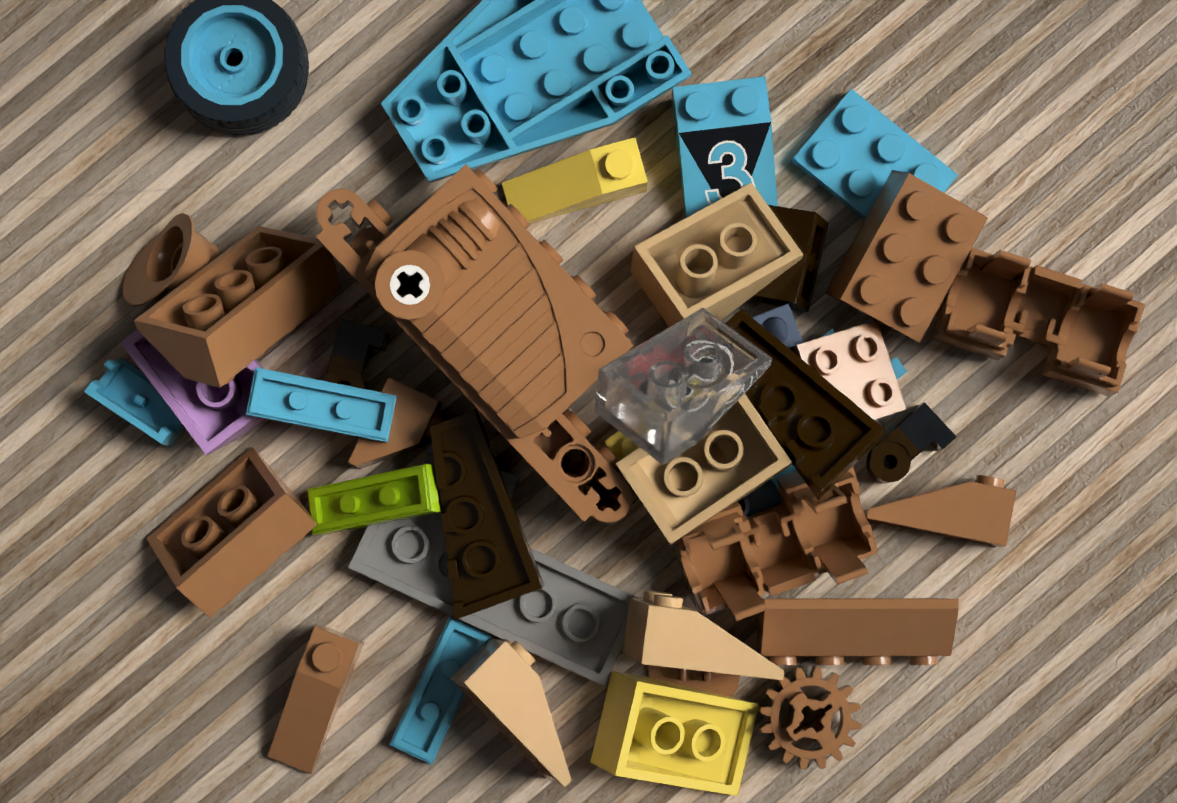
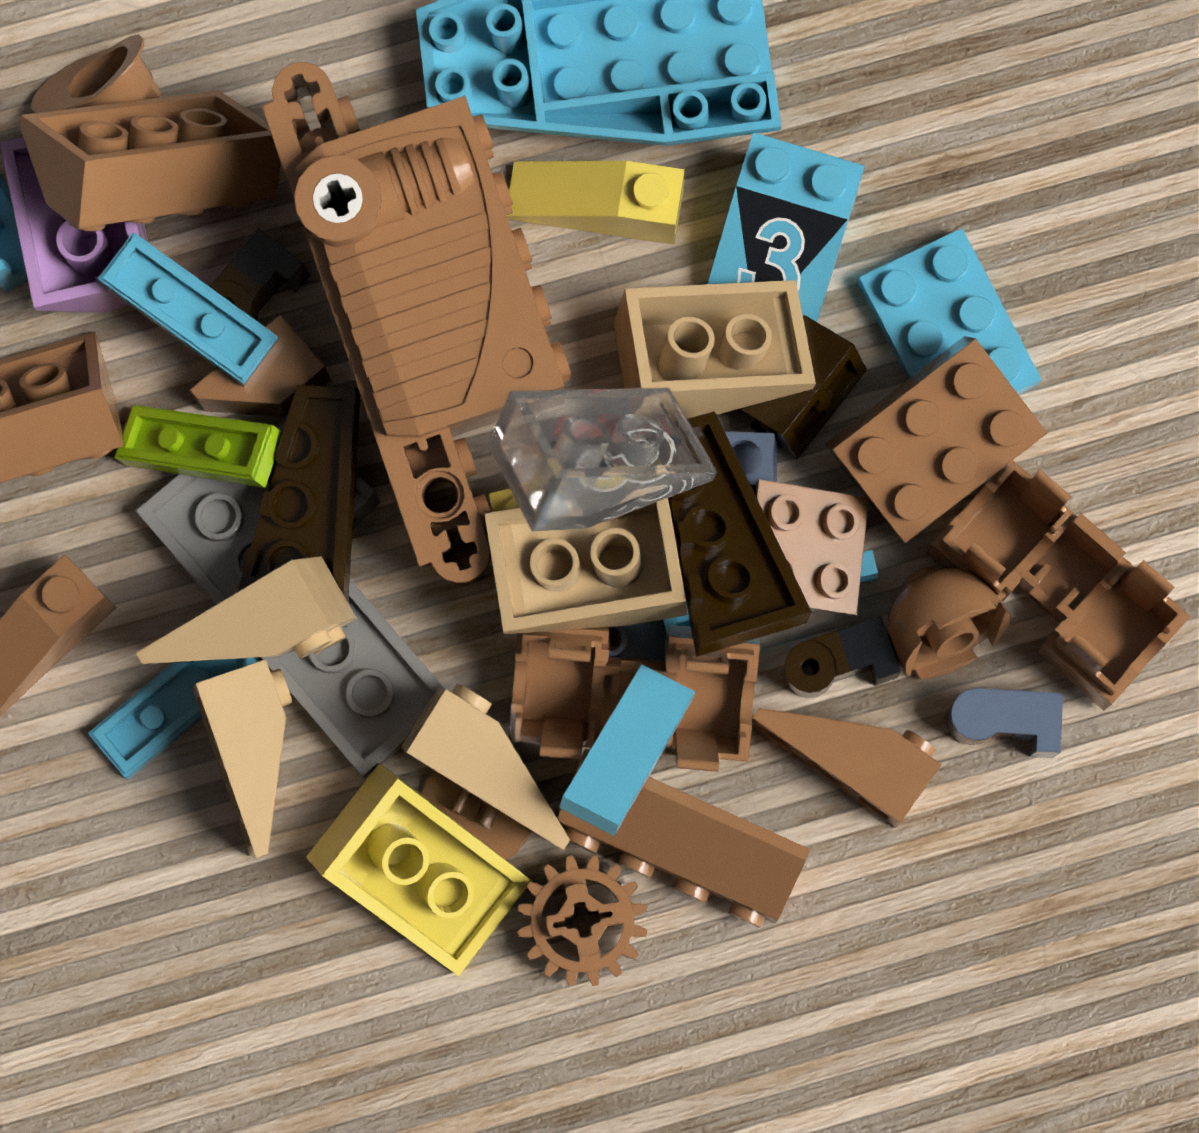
camera: 30 degrees right, 5 degrees down
(493, 614) = (276, 615): none -> tan slope
(796, 587) = (627, 750): none -> medium azure tile
(967, 384) = (942, 619): none -> medium nougat cylinder
(1029, 438) = (1008, 715): none -> sand blue leg

